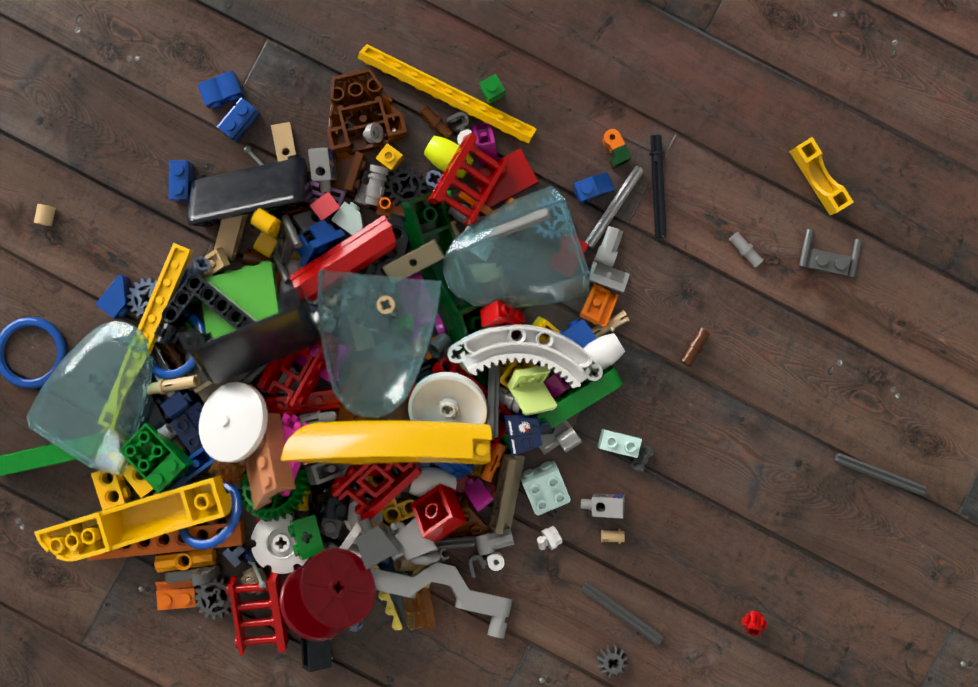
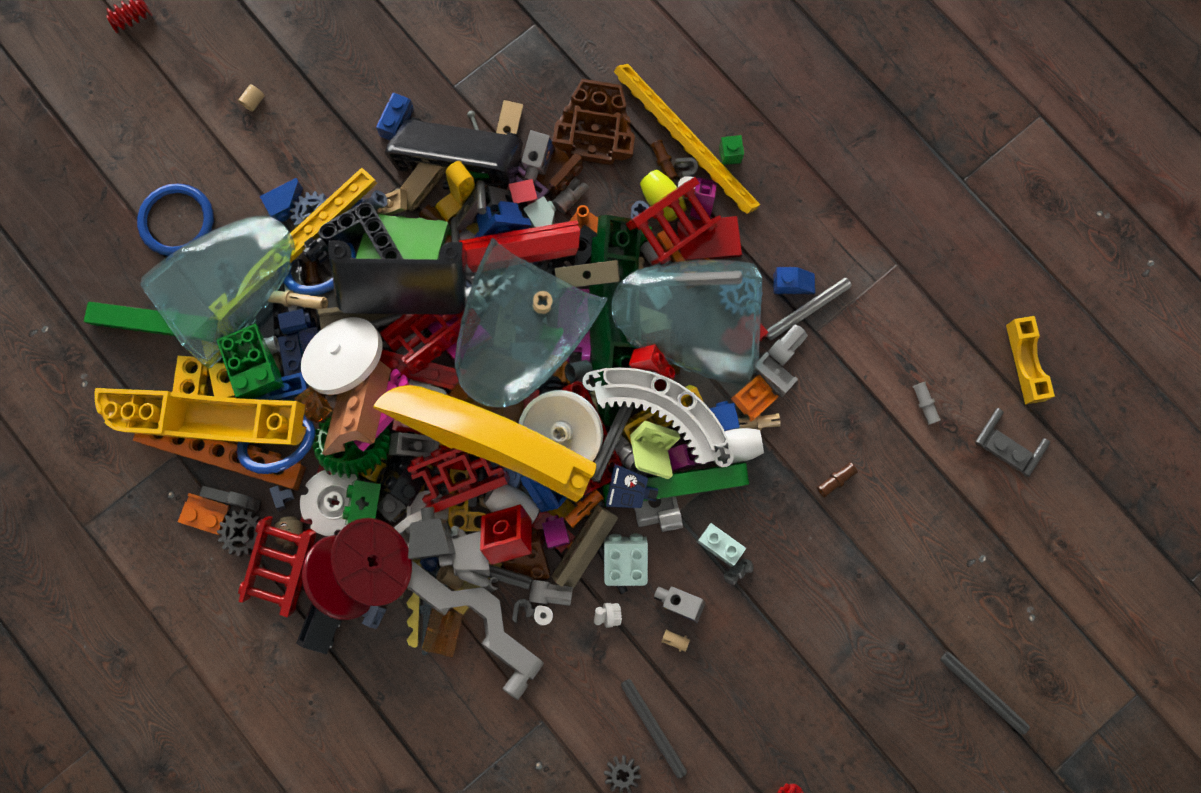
camera: 25 degrees right, 10 degrees down
(174, 561) = (217, 479): light orange piece -> none
(221, 90) = (470, 50): blue brick -> none
(238, 120) = (475, 83): blue brick -> none
(249, 560) = (294, 511): hinge -> none
(373, 133) = (599, 143): light grey tile -> none
(375, 187) = (581, 191): light grey axle -> none
(389, 158) = (605, 175): yellow brick -> none
(398, 182) = (608, 199): black gear -> none
(614, 142) = (833, 253): leg -> none
(658, 185) = (860, 305): black axle -> none

